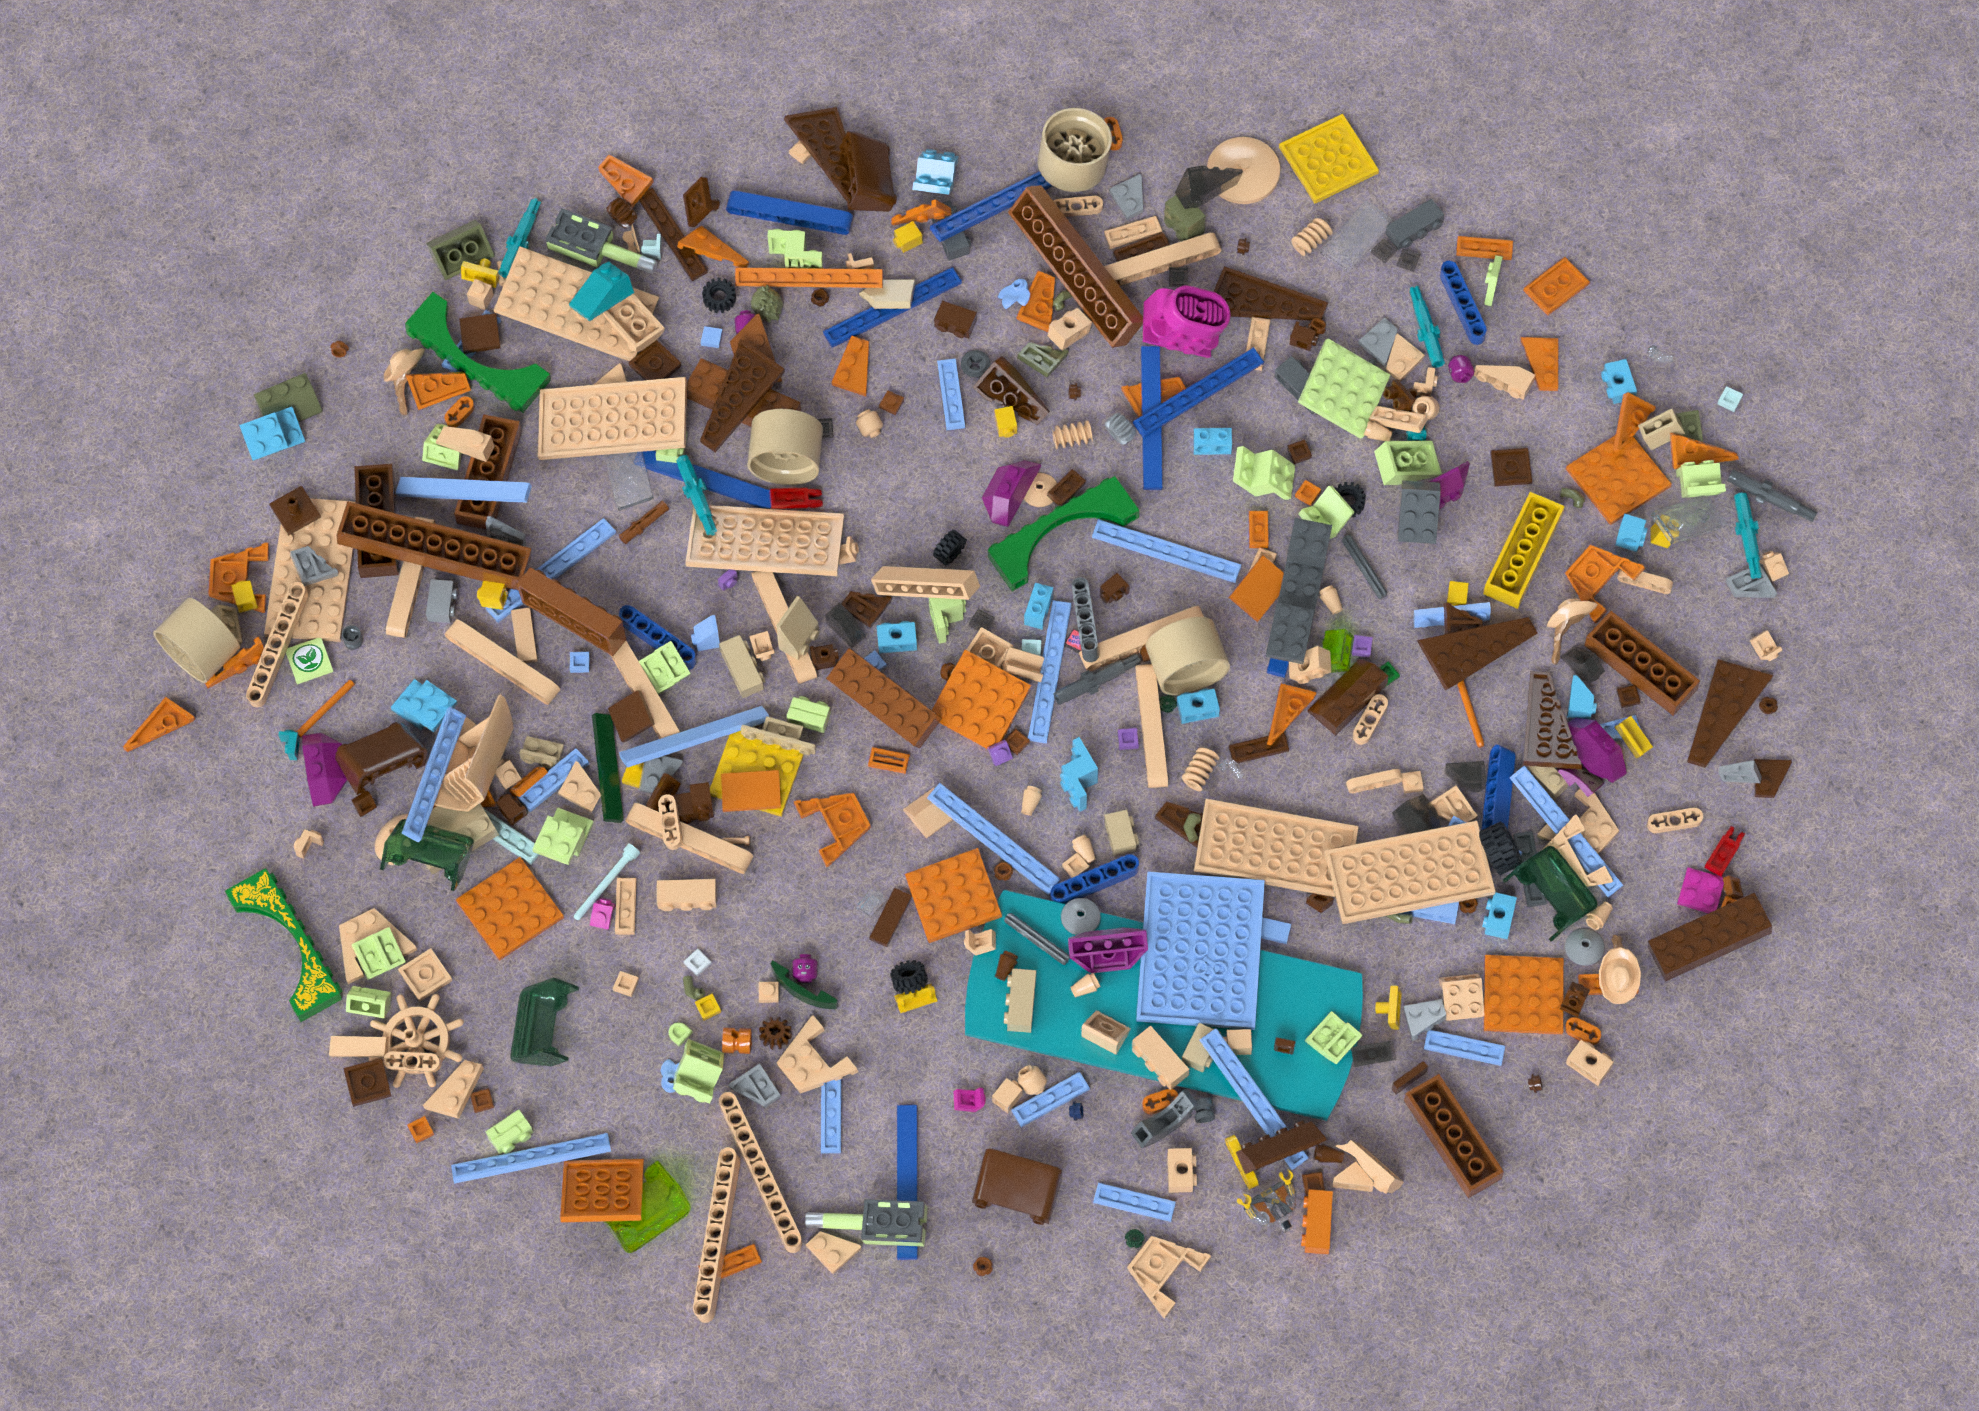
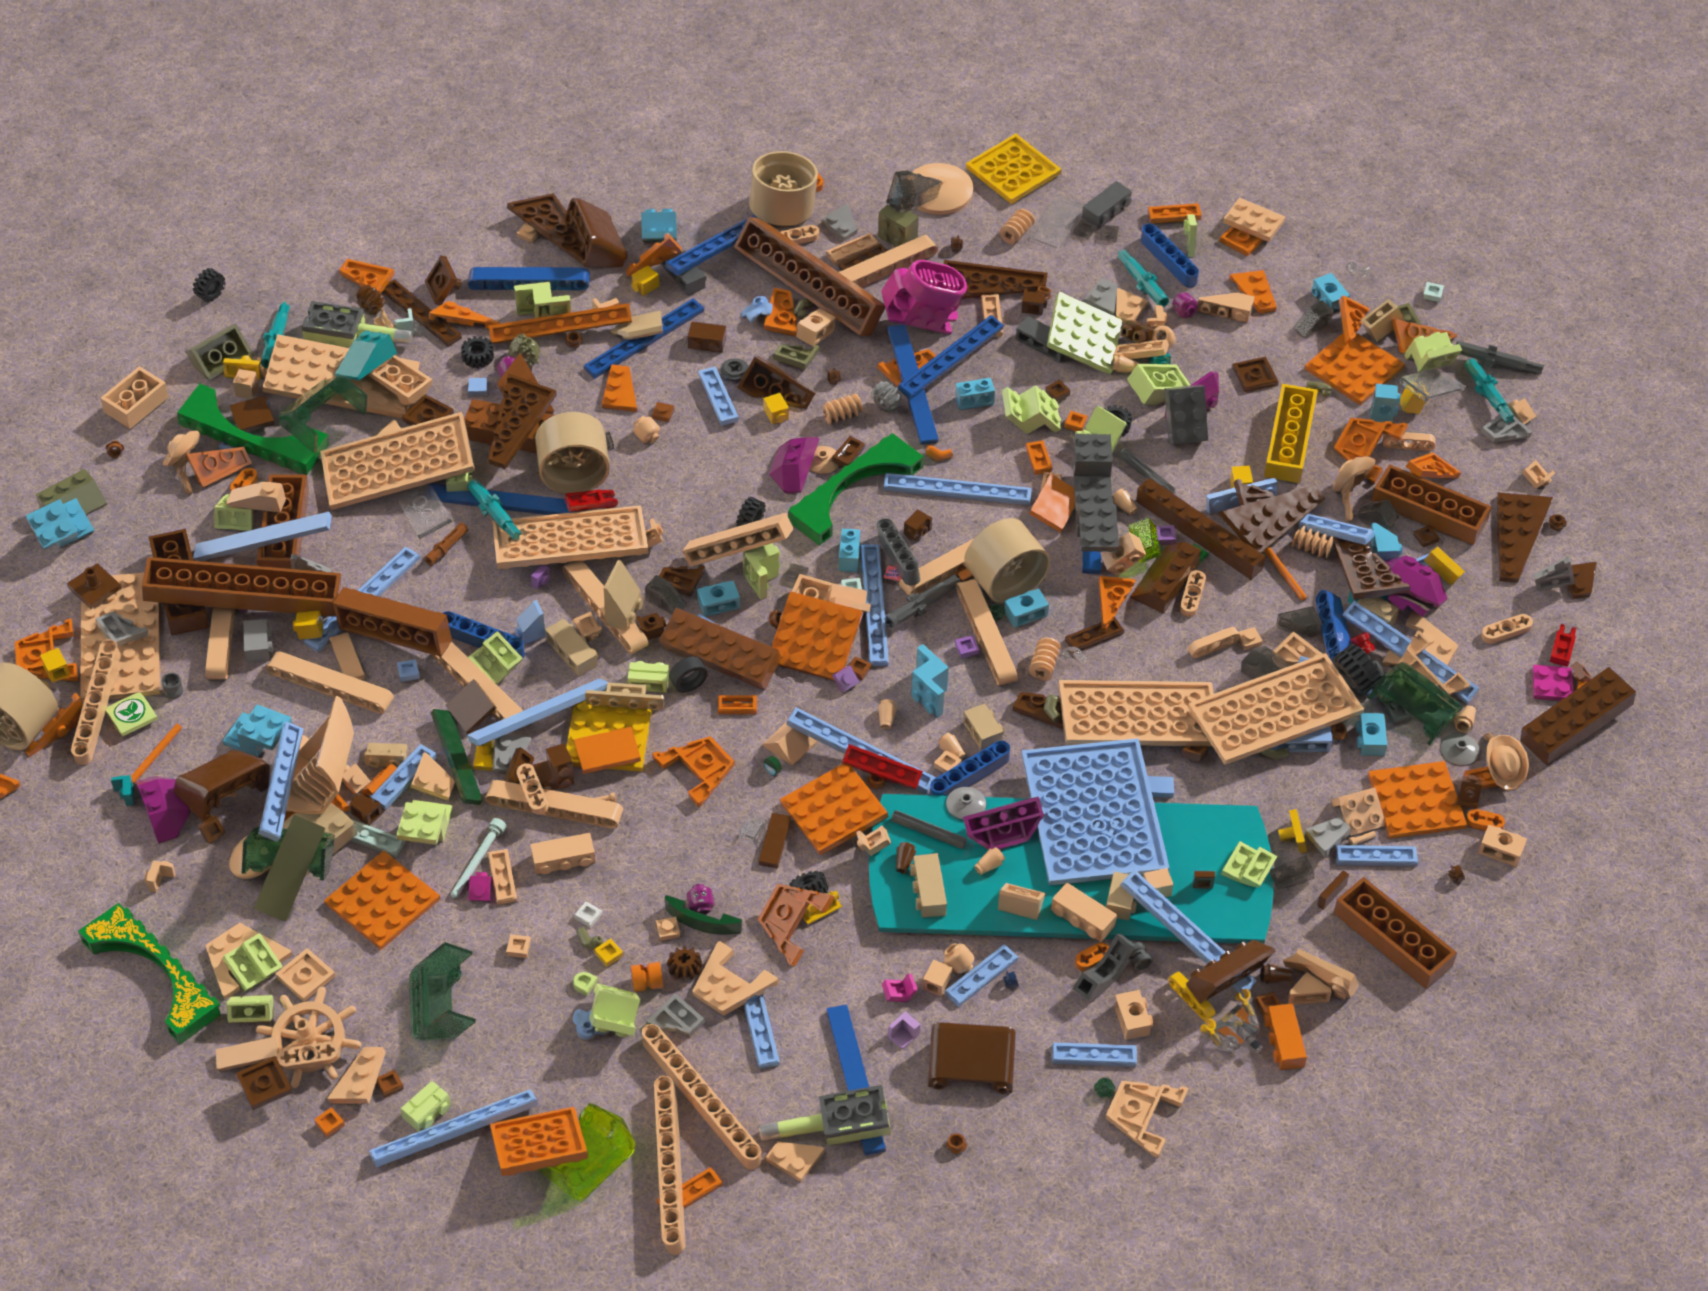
camera: 15 degrees left, 15 degrees down
(367, 292) = (134, 397): none -> light nougat brick
(427, 865) = (289, 868): none -> olive sticker
(462, 165) = (209, 285): none -> black tyre
(519, 350) = (299, 412): none -> clear green windscreen
(846, 721) = (684, 667): none -> black tyre
(879, 1000) = (784, 913): none -> orange wing
(906, 836) = (772, 765): none -> dark green tile
(962, 1143) = (903, 1030): none -> lavender panel
(1009, 861) = (882, 767): none -> red tile
(1157, 507) = (938, 455): none -> orange arm
(1398, 646) = (1200, 528): none -> reddish brown brick
(1446, 1028) = (1354, 841): none -> light nougat piece
(1508, 684) = (1313, 541): none -> light nougat piece
(1521, 812) = (1362, 640): none -> red wheel
(1535, 674) = (1337, 529): none -> light blue tile
(1566, 273) = (1254, 219): none -> light nougat plate
(1591, 412) = (1314, 319): none -> clear smoke slope
(1656, 619) = (1432, 466): none -> orange wing

